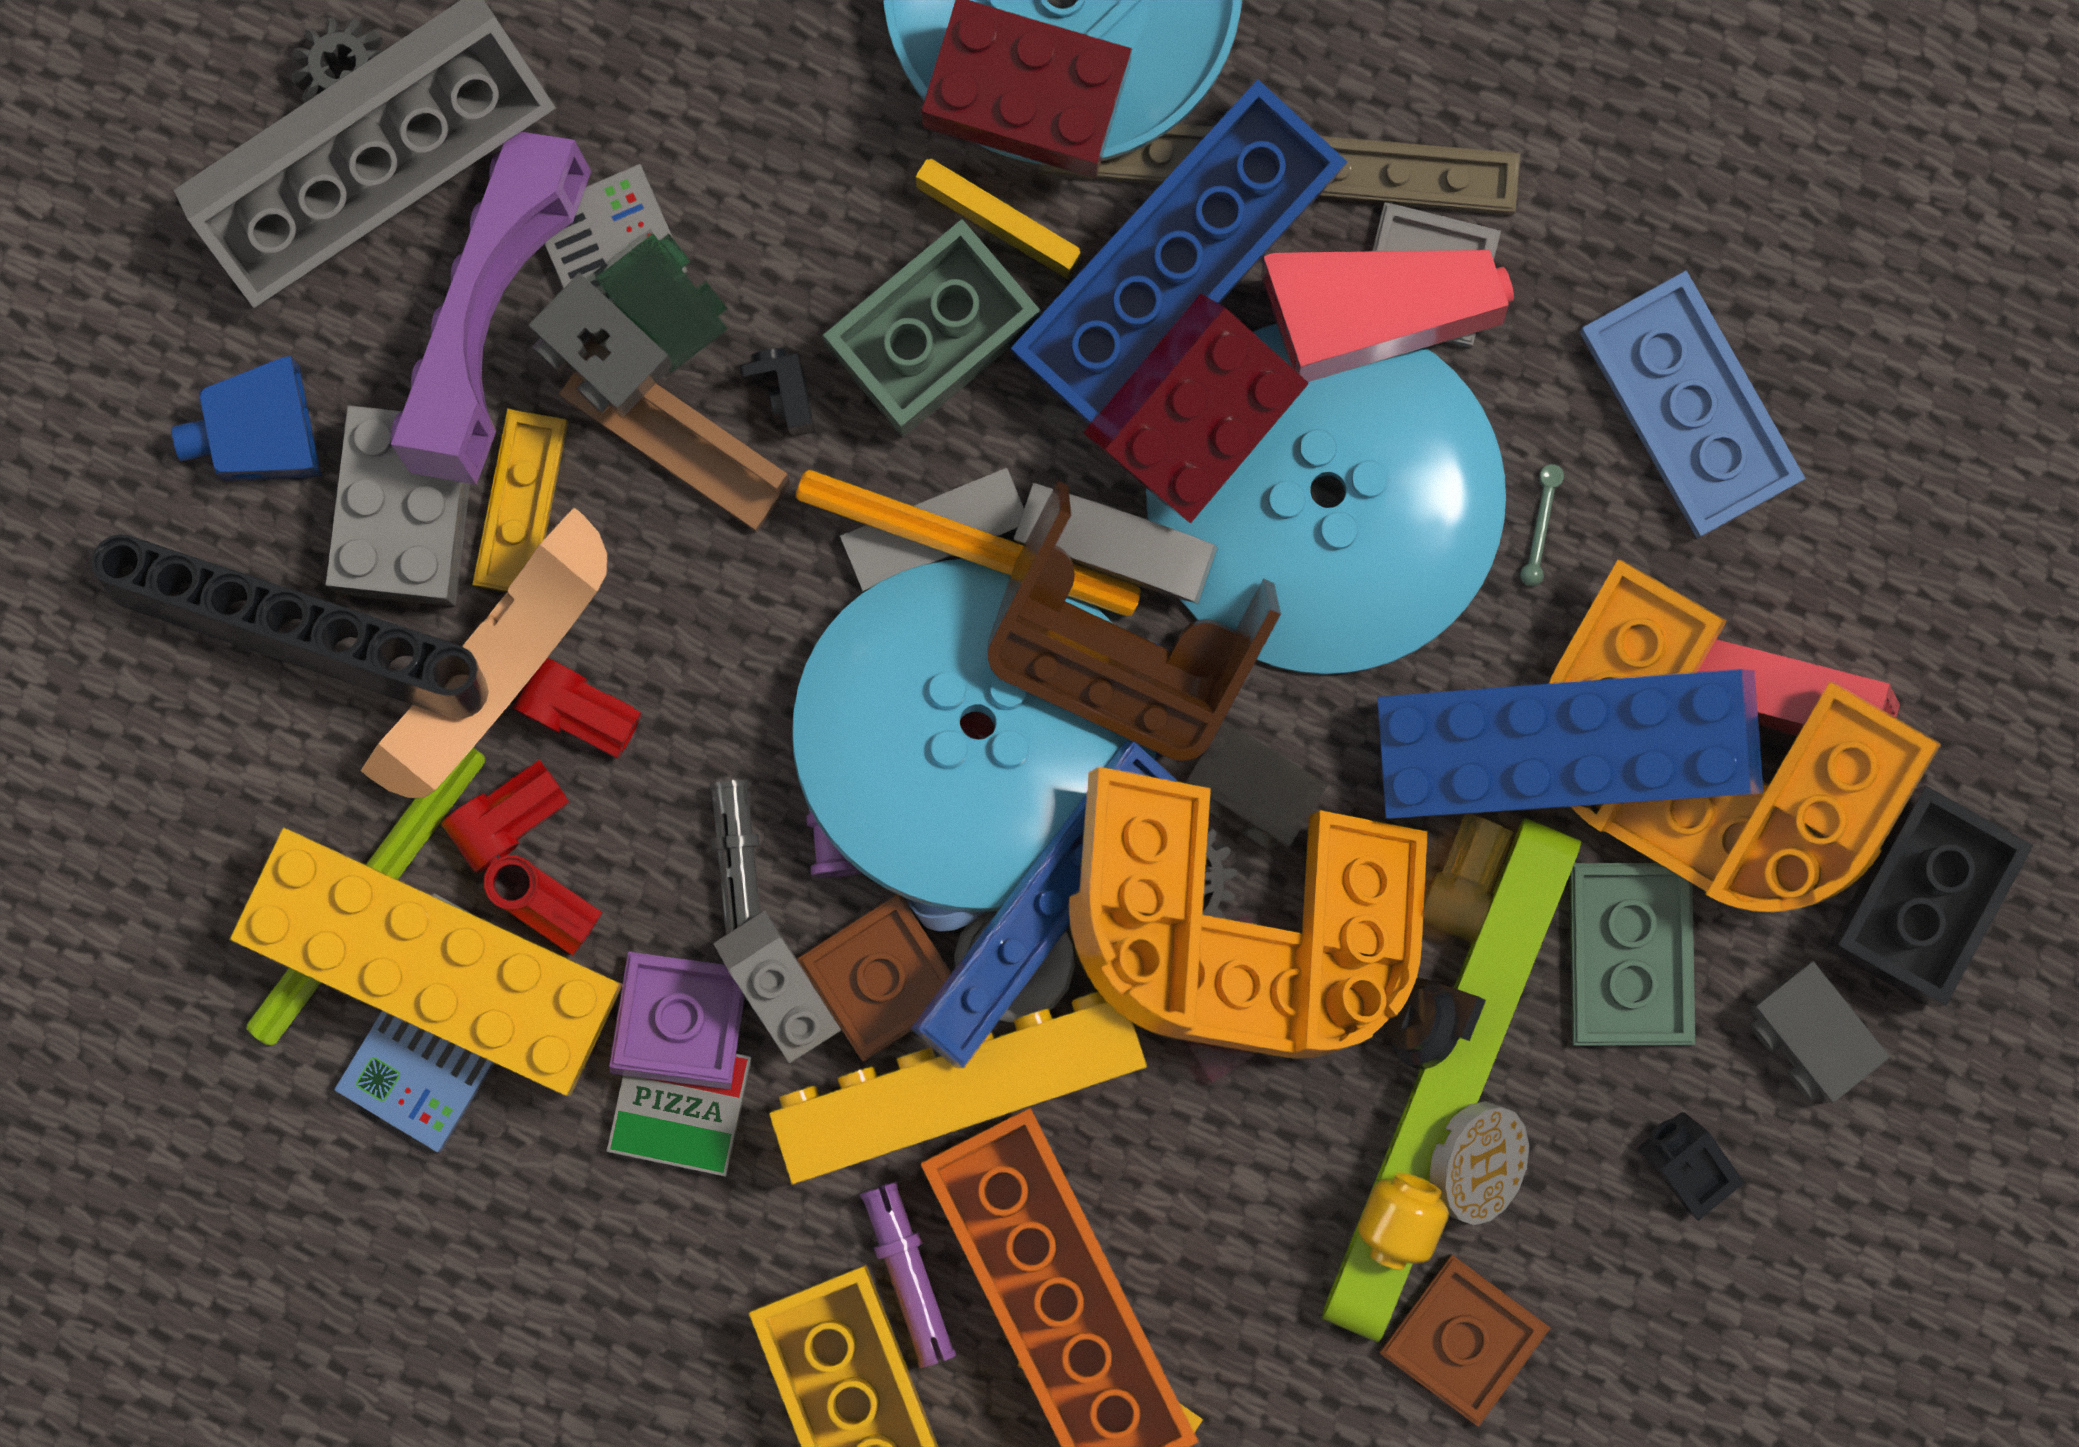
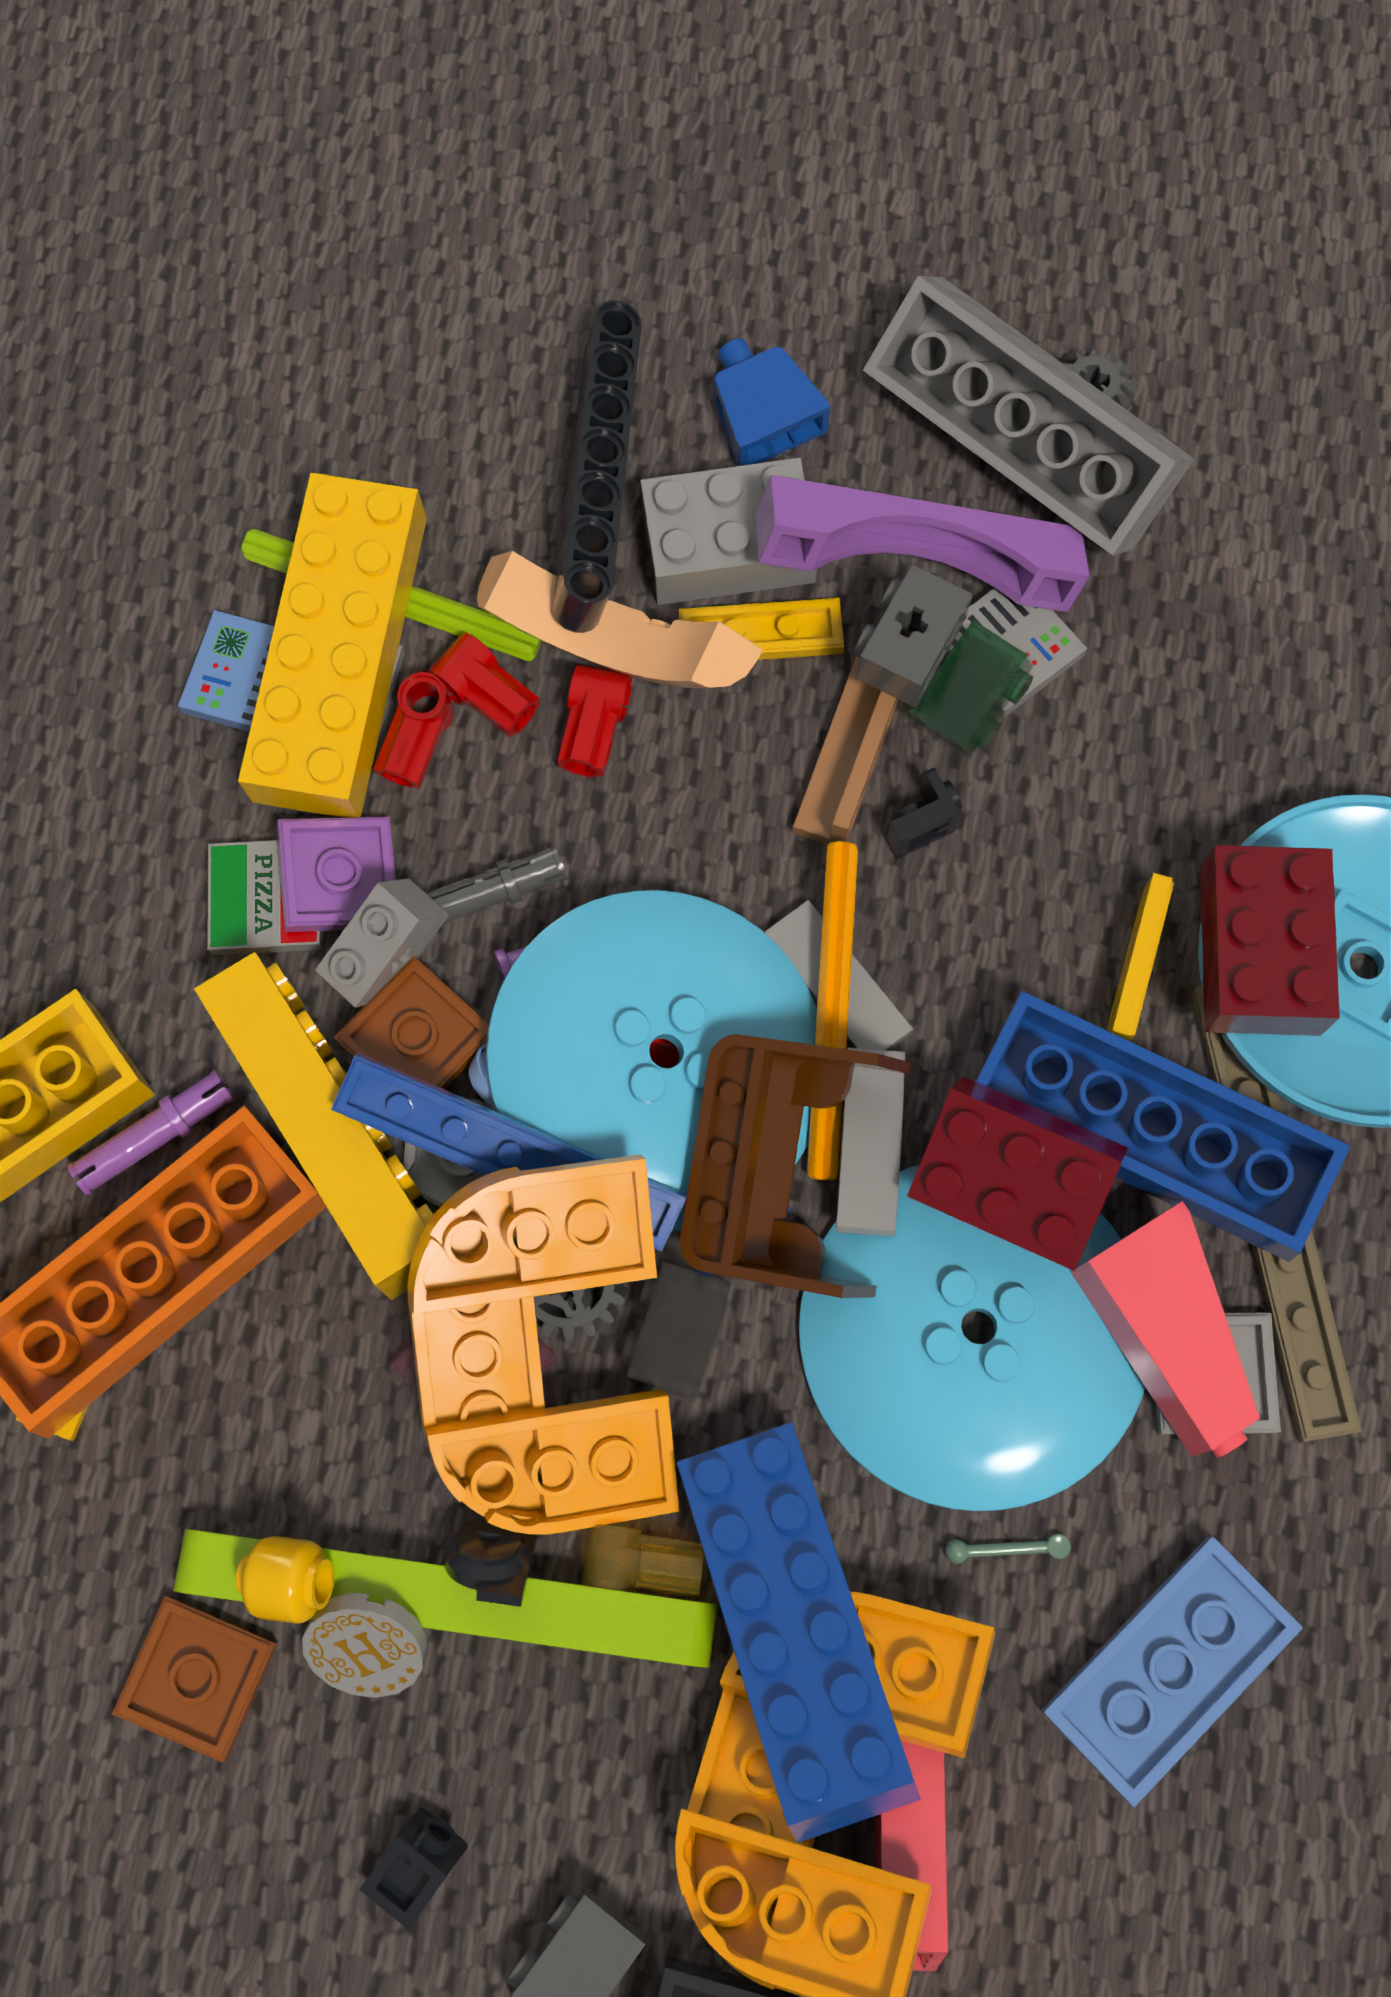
camera: 80 degrees right, 10 degrees down
(932, 328) = (1018, 922): sand green brick -> none
(1631, 955) = (608, 1751): sand green tile -> none

